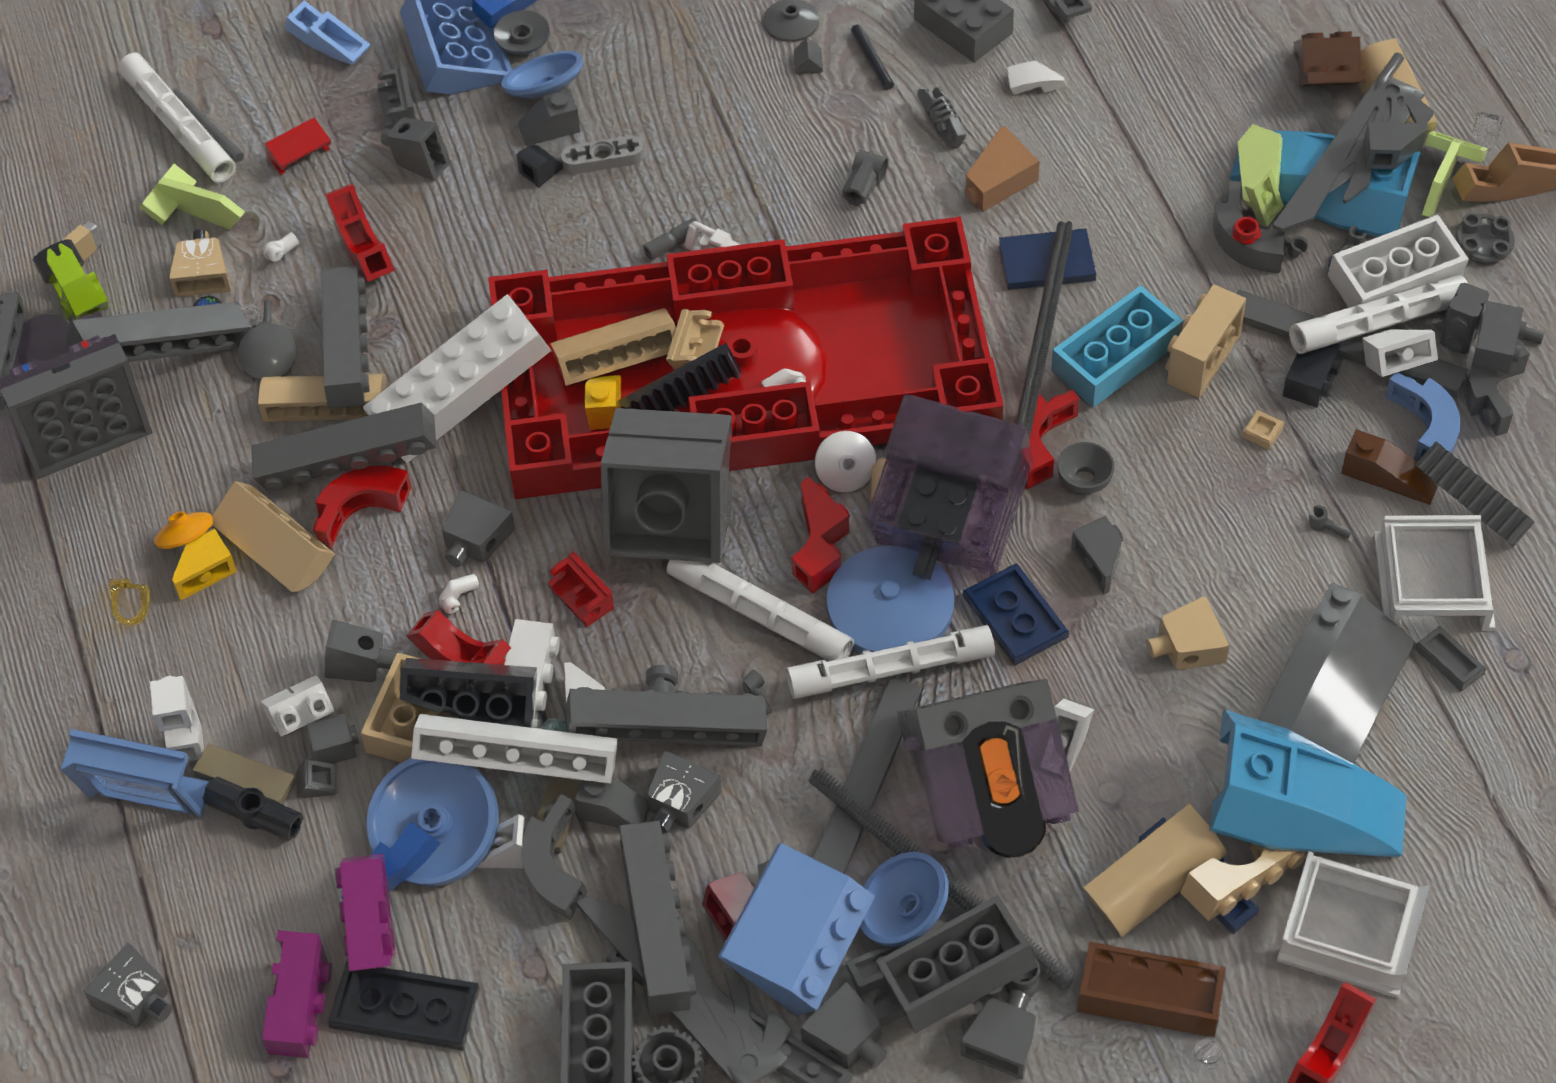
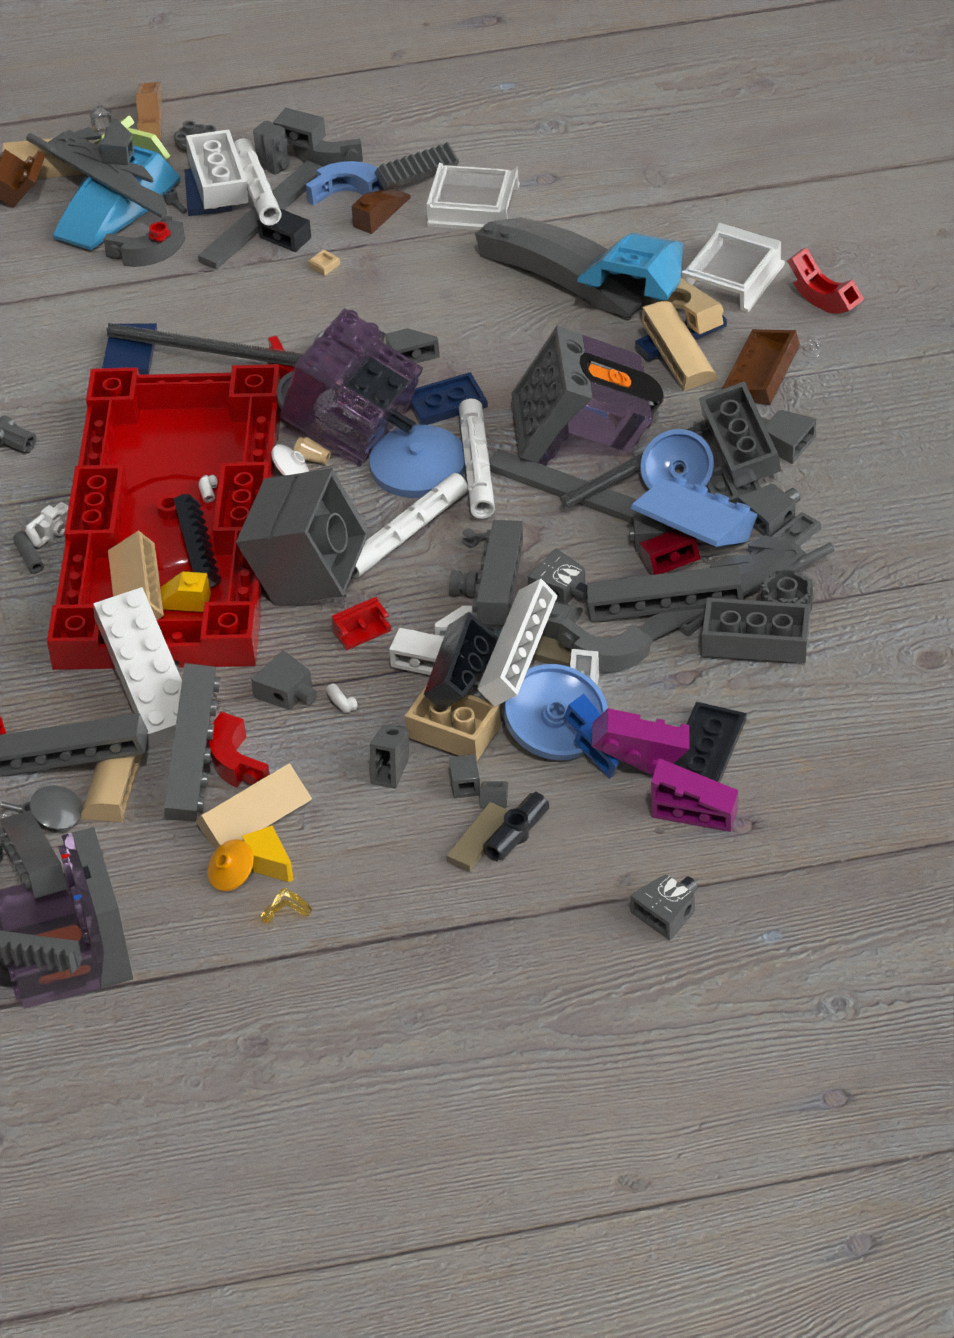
camera: 80 degrees left, 10 degrees down
(132, 772) = (484, 873): medium blue piece -> none
(177, 716) = (434, 851): white arch -> none
(292, 711) = (432, 787): white hips -> none
(444, 641) = (393, 702): red arch -> none
(693, 337) = (160, 531): tan hinge -> none
(826, 525) = (372, 490): red arch -> none
(1000, 171) = (35, 360): medium nougat slope -> none
(1116, 346) = (232, 311): medium azure brick -> none
(1190, 637) = (491, 312): tan torso -> none
(1205, 340) = (247, 267): tan brick -> none
(1260, 172) = (97, 222): yellowish green piece -> none
(1321, 522) = (410, 243): dark grey hand -> none
(1399, 350) = (290, 179): white slope -> none
(1450, 658) = (538, 204): dark grey tile -> none

